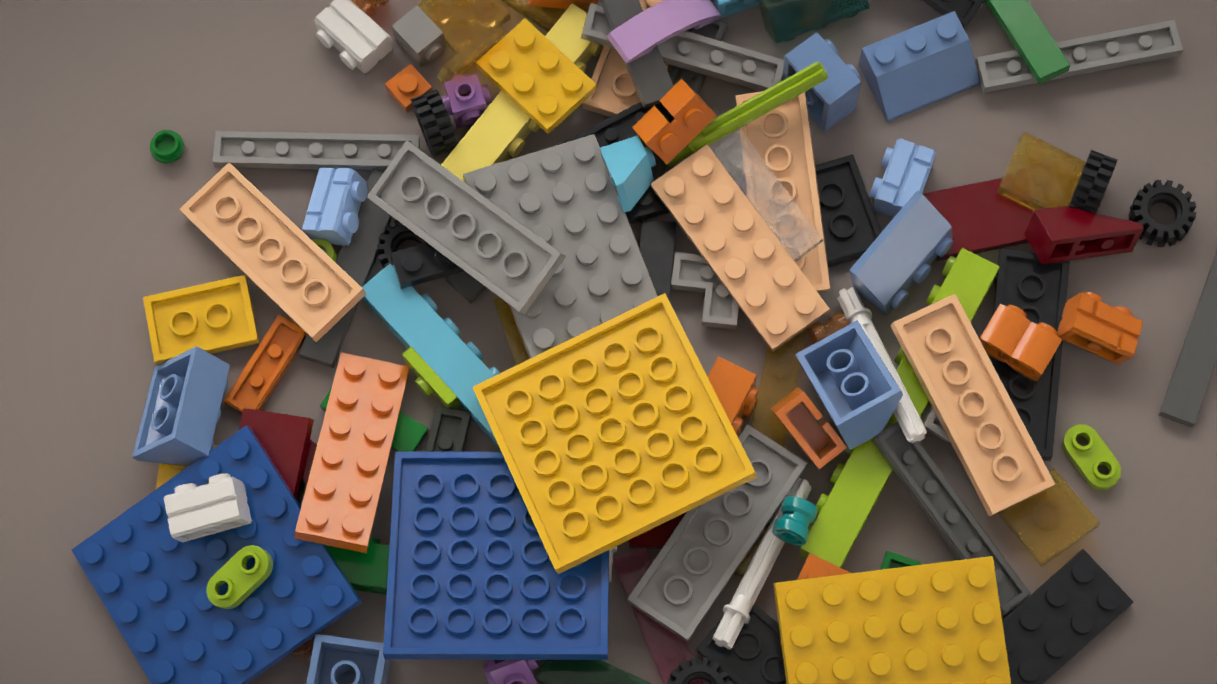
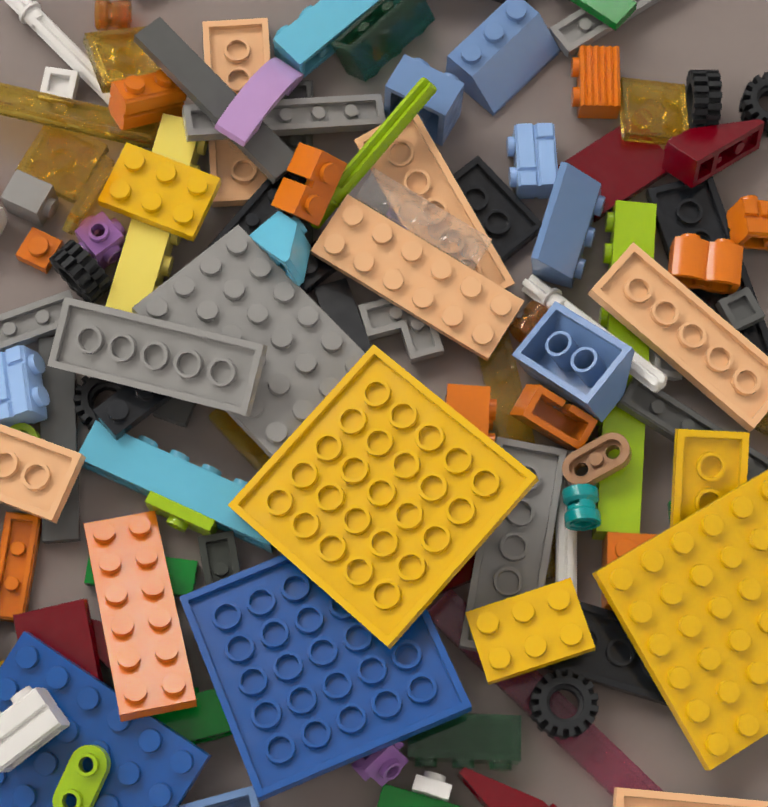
camera: 30 degrees left, 0 degrees up
(694, 612) = (530, 631): none -> yellow plate
(829, 481) = (595, 458): none -> medium nougat plate
(929, 531) = (706, 468): none -> yellow plate
(999, 128) = (597, 82): none -> orange brick
(1033, 398) = (740, 309): none -> dark grey plate

